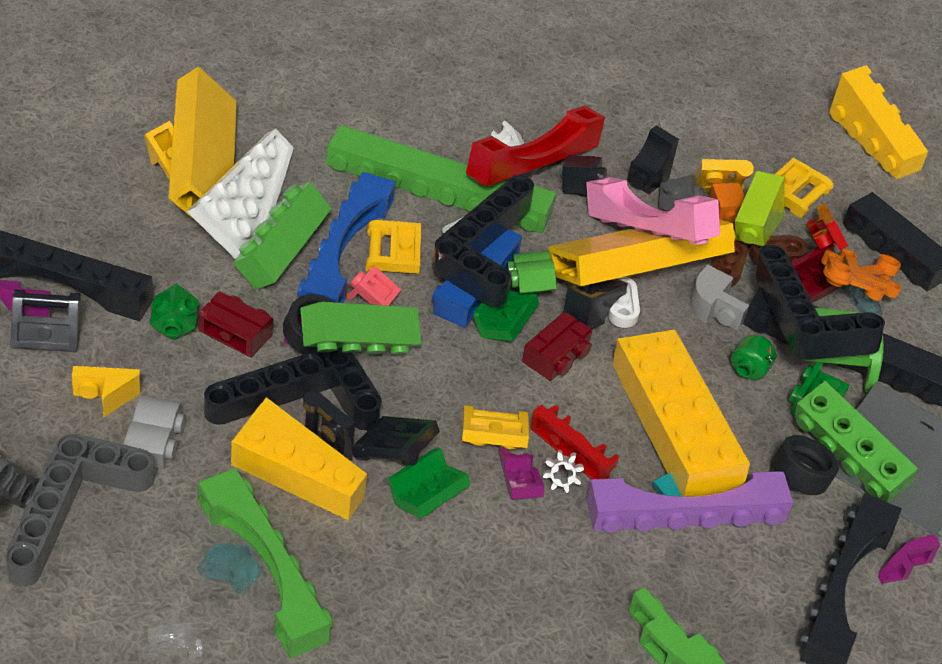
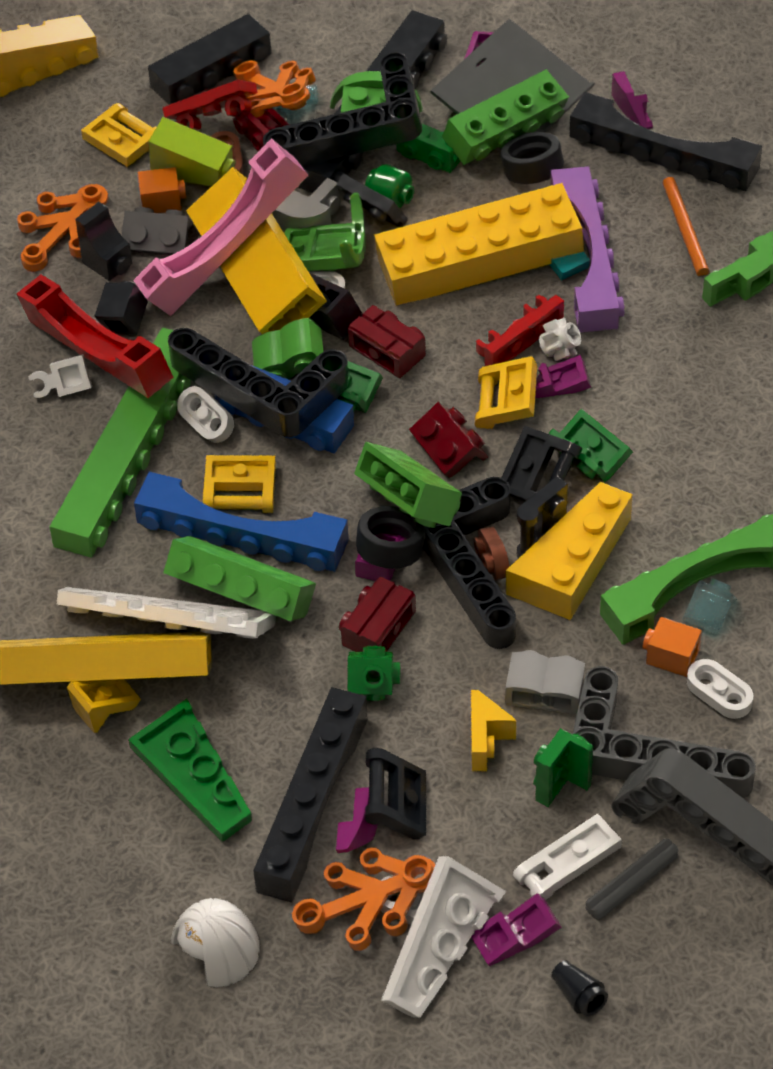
camera: 80 degrees left, 5 degrees up
(43, 420) = (562, 760): none -> green bracket
(101, 209) = (187, 763): none -> green wing
(126, 564) = (723, 687): none -> white plate
(179, 528) = (672, 646): none -> orange brick
(290, 398) = (492, 551): none -> copper plate
(373, 287) = (309, 497): coral bracket -> none
(442, 387) = (447, 440): none -> dark red bracket
(669, 305) = (332, 245): none -> bright green piece
(688, 150) = (35, 255): none -> orange plant
(717, 171) = (129, 184): yellow plate -> none
(725, 338) = (376, 204): none -> black plate
(737, 597) = (685, 226): none -> orange bar

